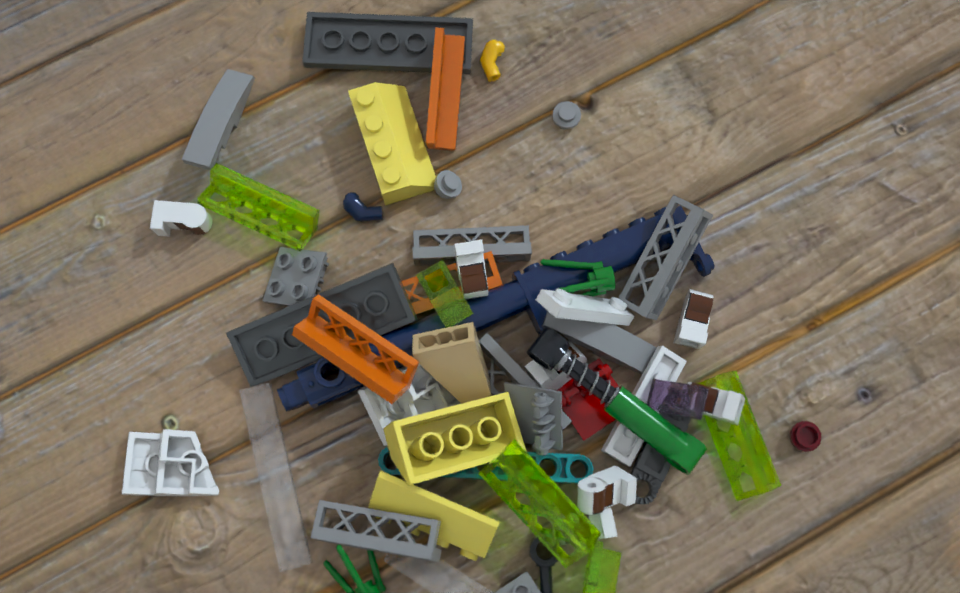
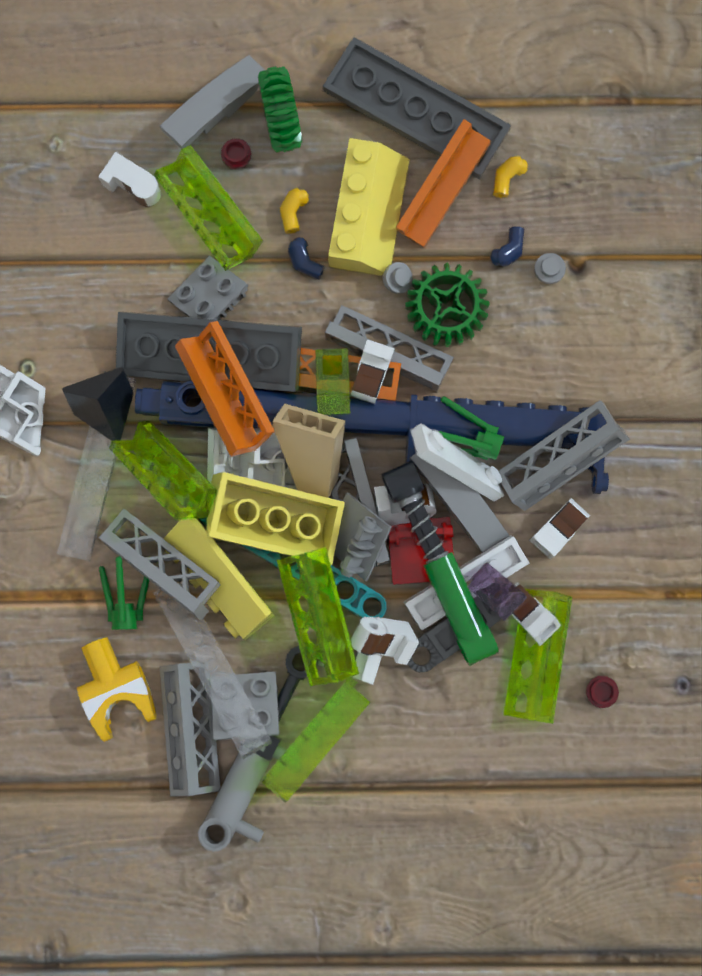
camera: 30 degrees right, 5 degrees up
(252, 417) = (102, 402): none -> black slope
(258, 152) = (236, 153): none -> dark red plate
(277, 96) = (280, 109): none -> green gear
(326, 173) = (289, 207): none -> yellow arm
(342, 444) = (170, 470): none -> clear neon green fence
(489, 185) = (456, 312): none -> green gear
(527, 117) = (512, 250): none -> dark blue arm

